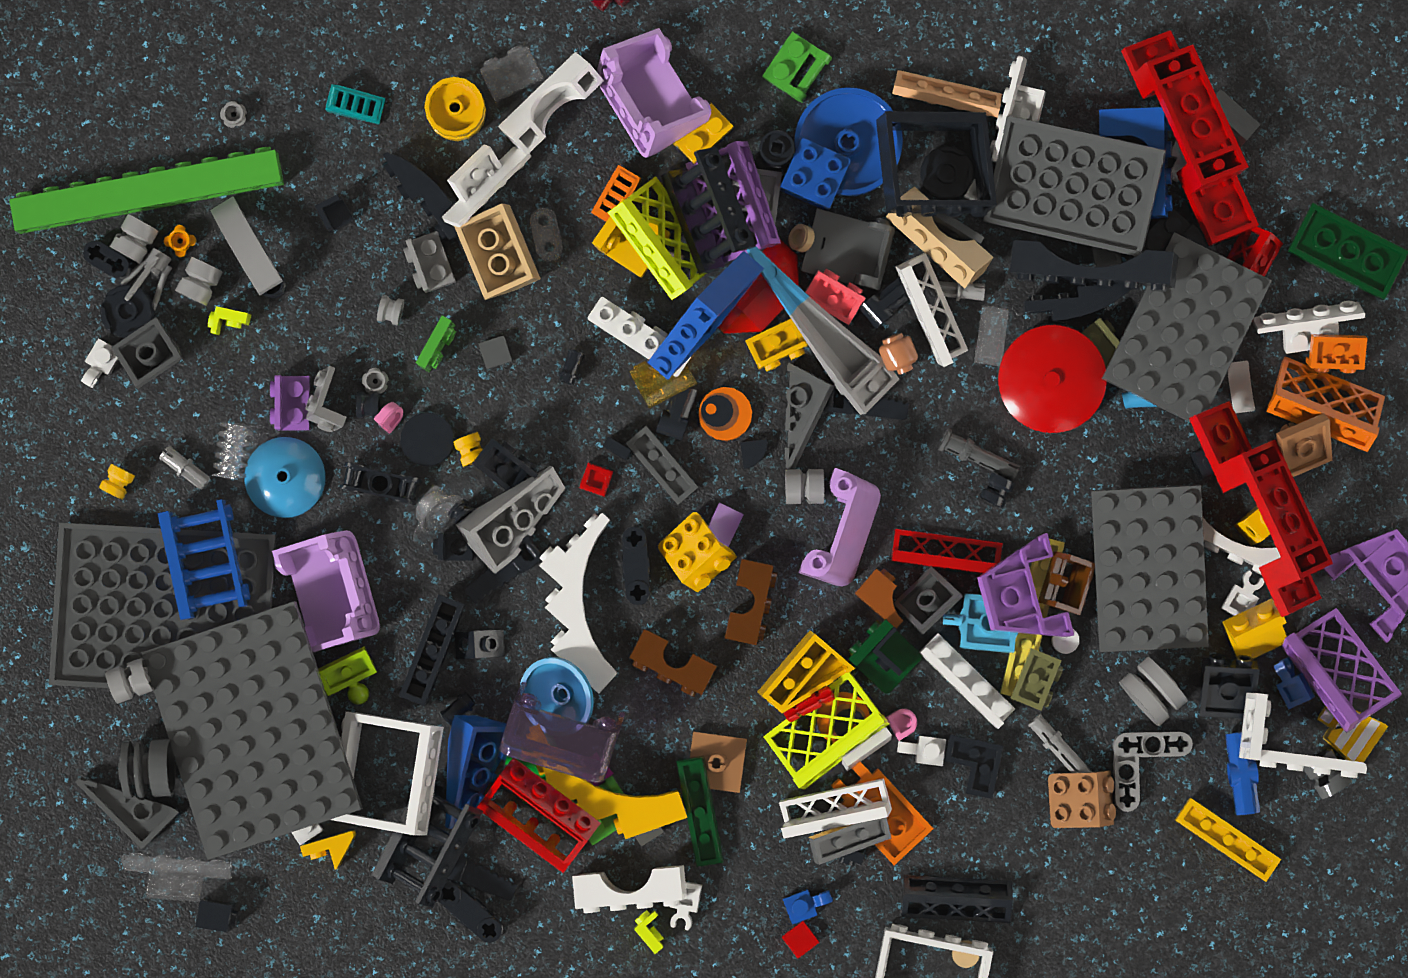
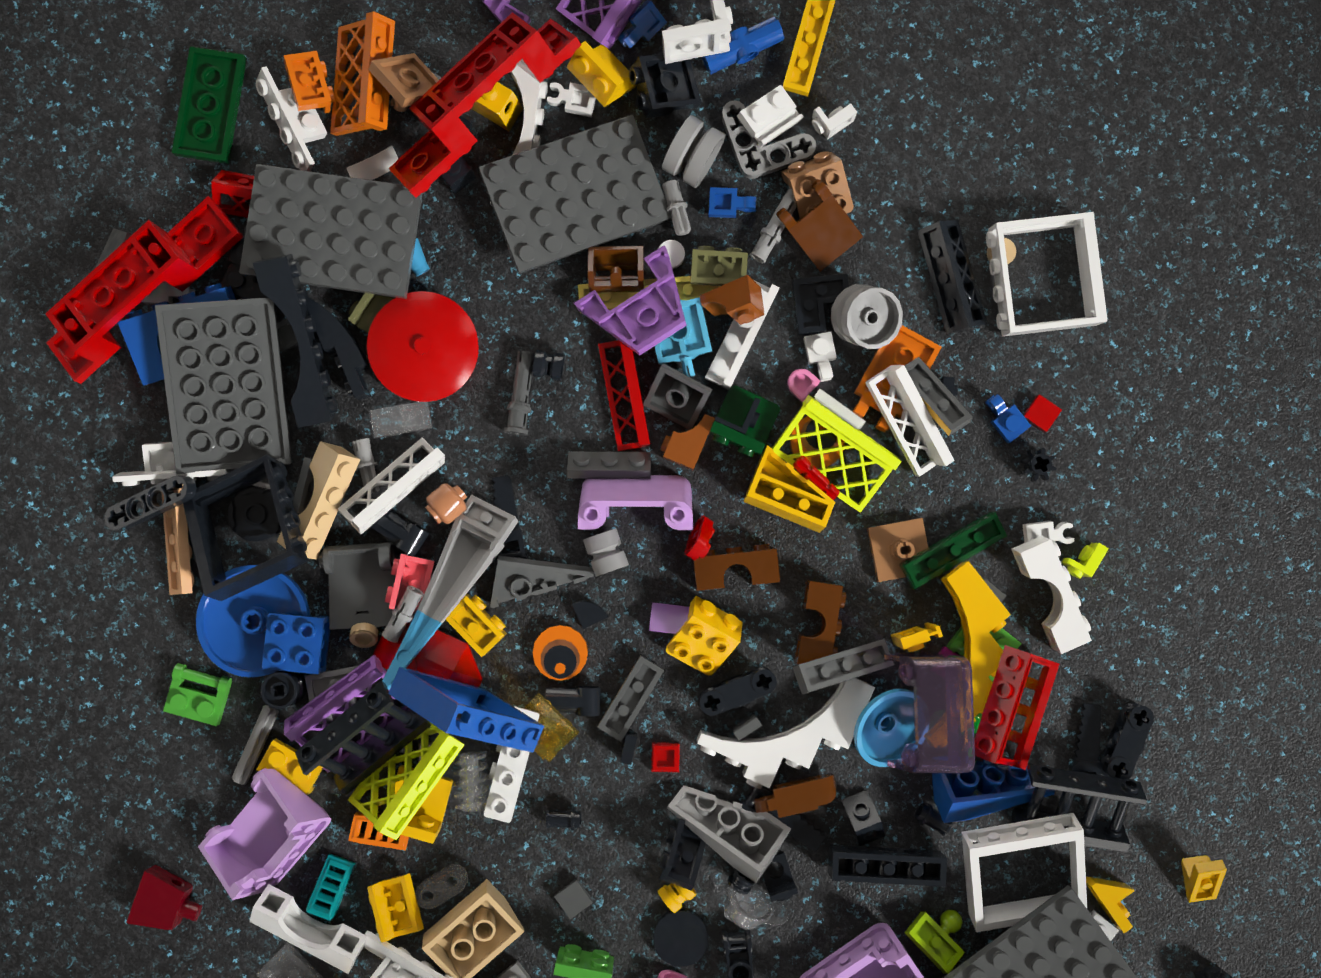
camera: 110 degrees left, 0 degrees up
(320, 938) = (1202, 877): none -> yellow slope
(522, 590) = (798, 795): none -> reddish brown piece
(543, 188) = (395, 907): none -> yellow bracket
(563, 118) = (319, 909): none -> teal slope
(600, 563) = (746, 727): none -> dark grey tile
(628, 669) = (842, 666): none -> dark grey plate
(631, 742) = (915, 637): none -> yellow plate
(634, 294) = (471, 781): none -> clear piece
(733, 105) = (255, 745): none -> light grey axle
(746, 913) = (1043, 469): none -> black gear
(786, 575) = (699, 538): none -> red plate
(809, 281) = (402, 614): none -> light grey pin
(885, 516) = (609, 465): none -> dark grey plate
(945, 801) = (866, 316): none -> light grey wheel
(988, 82) = (150, 505): none -> black beam
(999, 687) = (737, 298): none -> dark orange arch
(1039, 789) = (824, 230): none -> reddish brown flag
(1096, 707) = (725, 202): none -> blue plate
(1107, 659) = (676, 207): none -> light grey axle
(1141, 840) = (837, 120): none -> white bracket
(1165, 776) = (770, 116): none -> white plate

